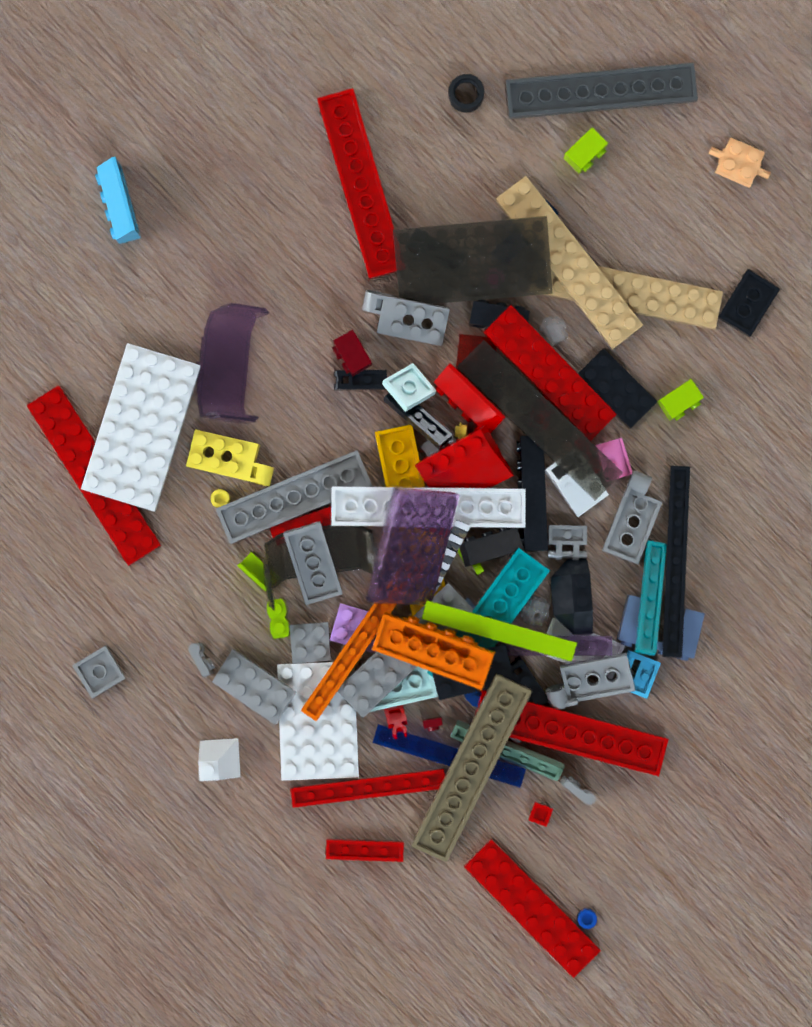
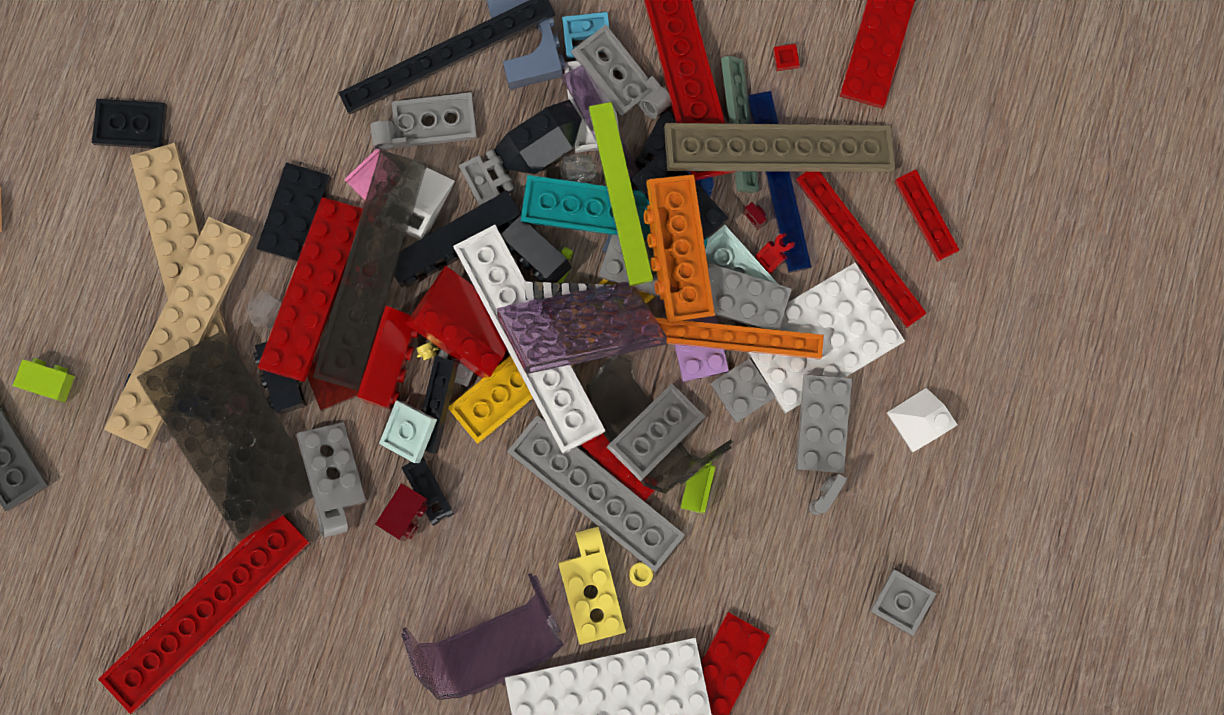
camera: 120 degrees left, 5 degrees down
(279, 623) = (741, 433): lime brick -> none
(466, 78) = (25, 538): black tyre -> none
(573, 786) = (740, 29): light grey plate -> none
(651, 598) = (499, 57): teal plate -> none
(680, 399) = (271, 138): lime brick -> none

